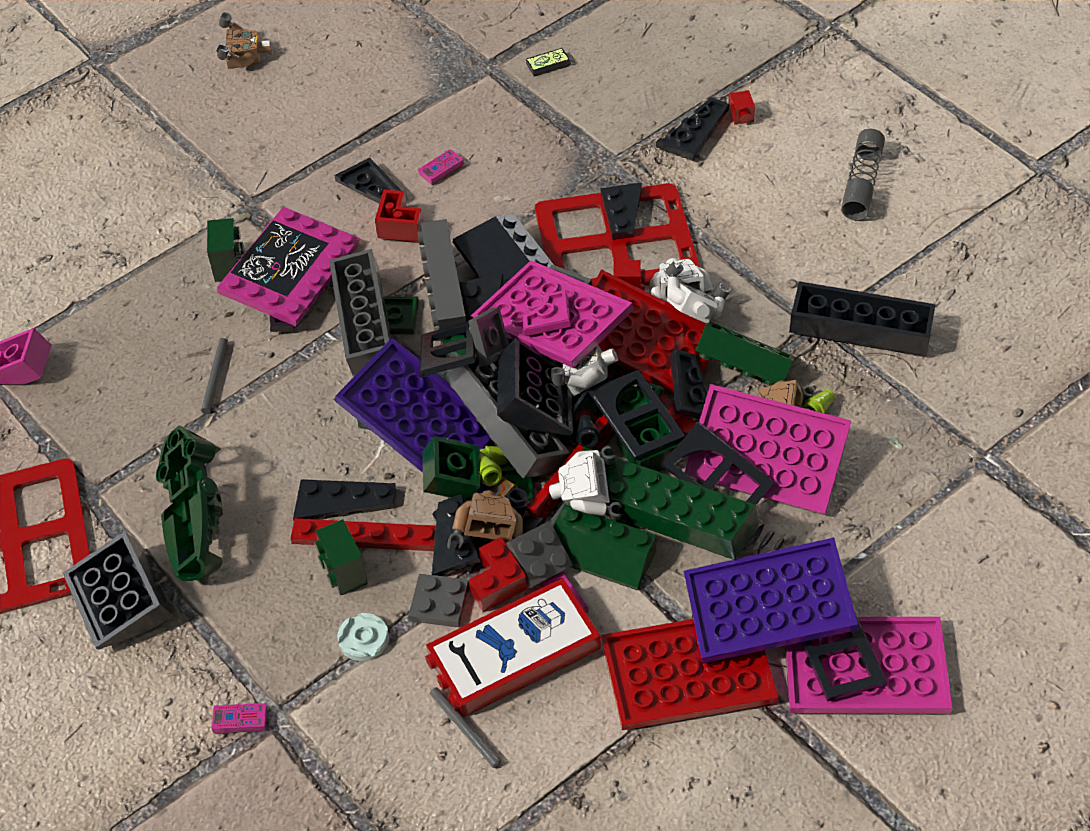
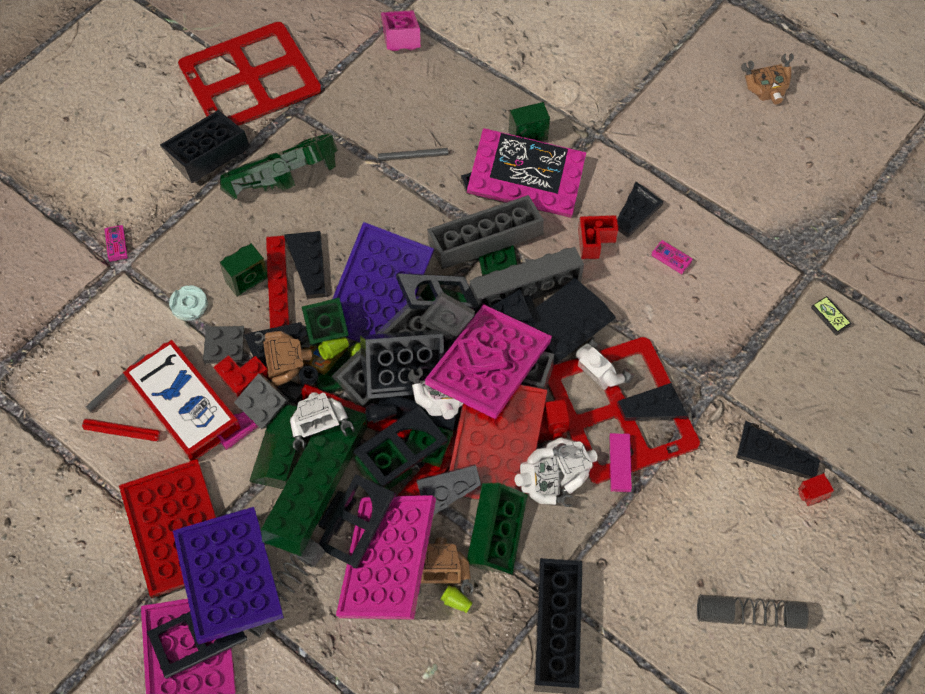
camera: 75 degrees right, 10 degrees up
(537, 725) = (121, 429): none -> red axle
(569, 238) = (599, 367): none -> white torso
(683, 245) = (620, 462): none -> dark pink tile

